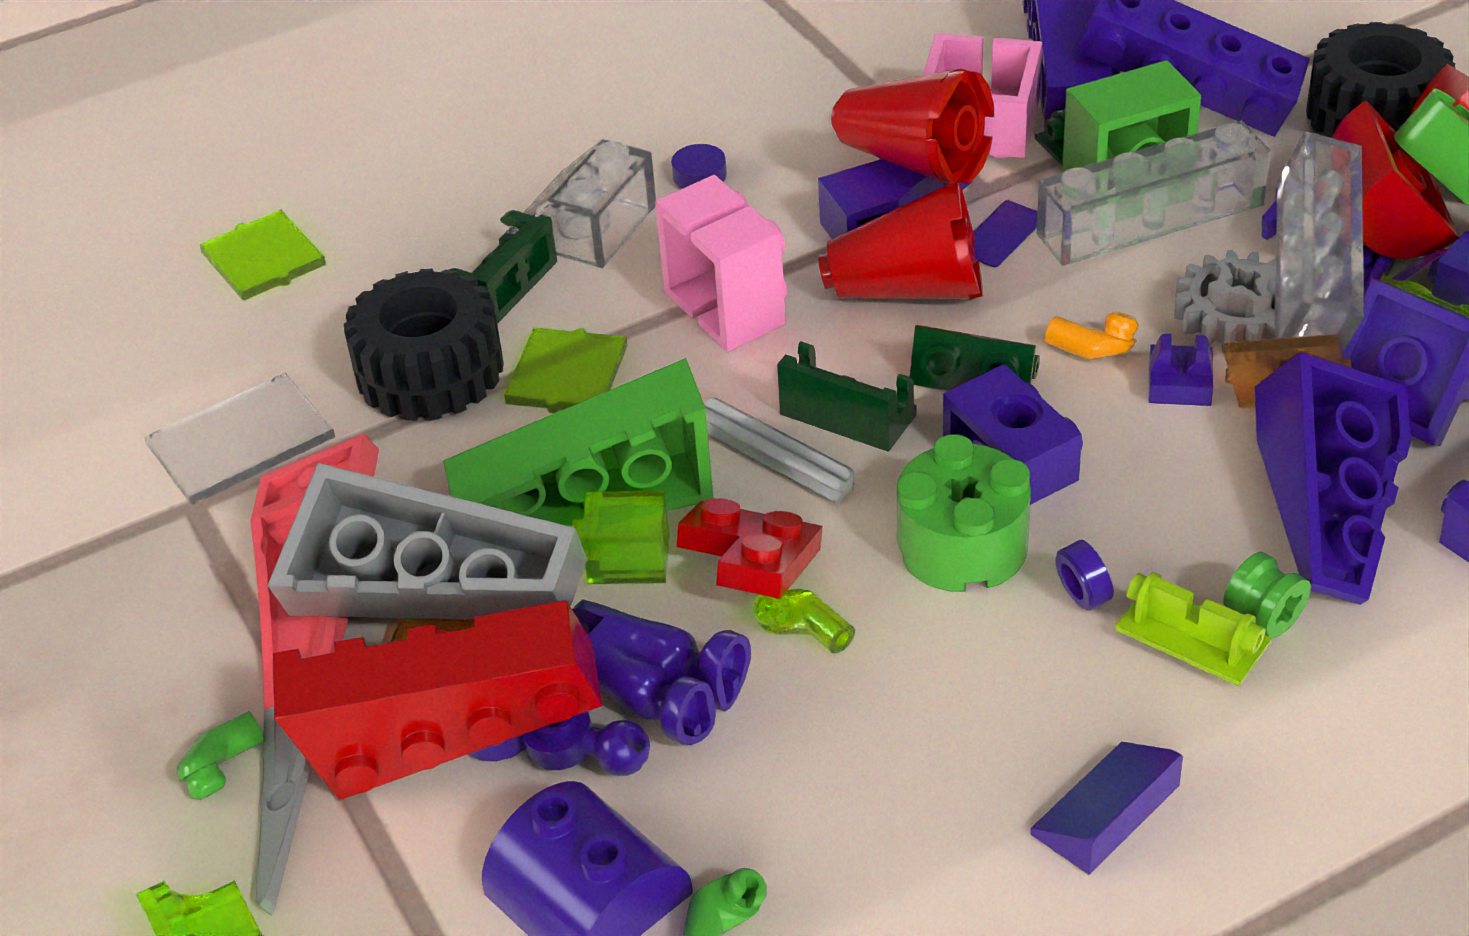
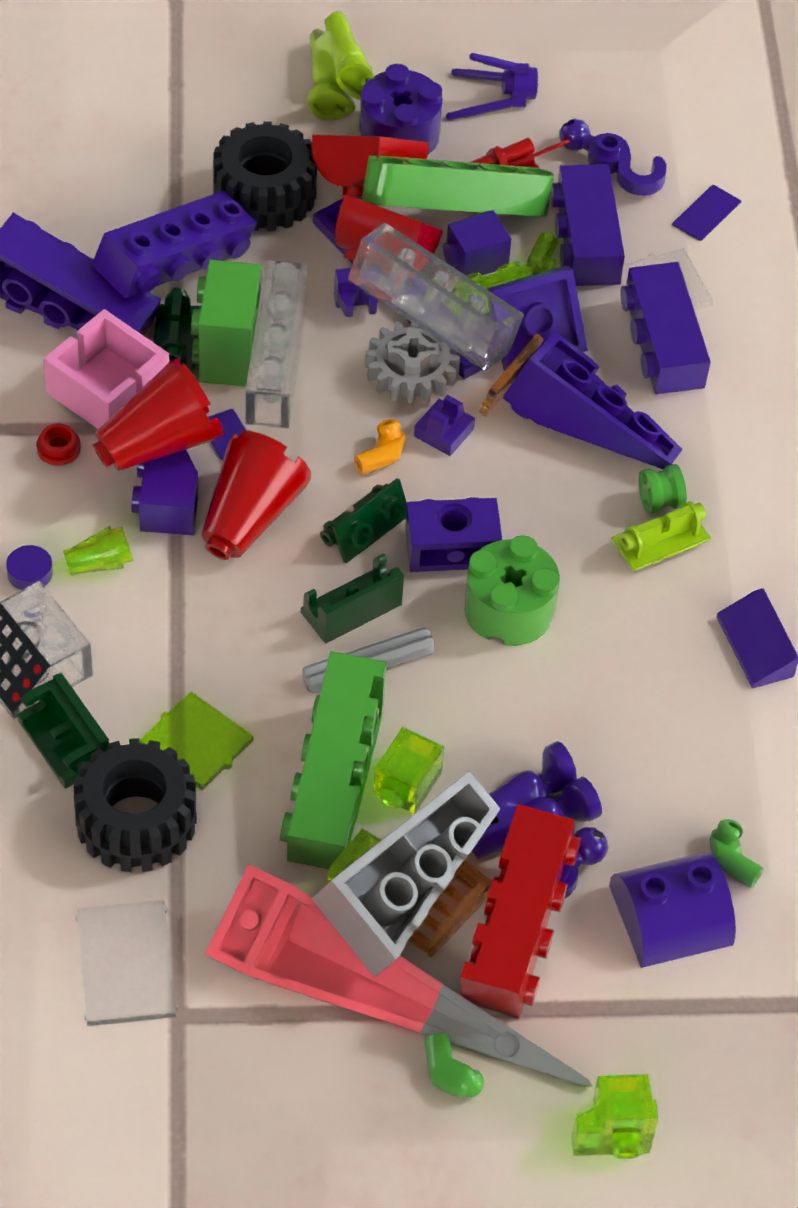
camera: 70 degrees left, 10 degrees up
(722, 262) = (200, 579): bright pink piece -> none
(756, 549) = (460, 700): red plate -> none
(763, 193) = (99, 552): none -> clear neon green cone
(804, 613) = (526, 711): clear neon green arm -> none
(1084, 575) = (592, 561): dark purple tile -> none
(1418, 265) = (462, 258): dark purple sticker -> none

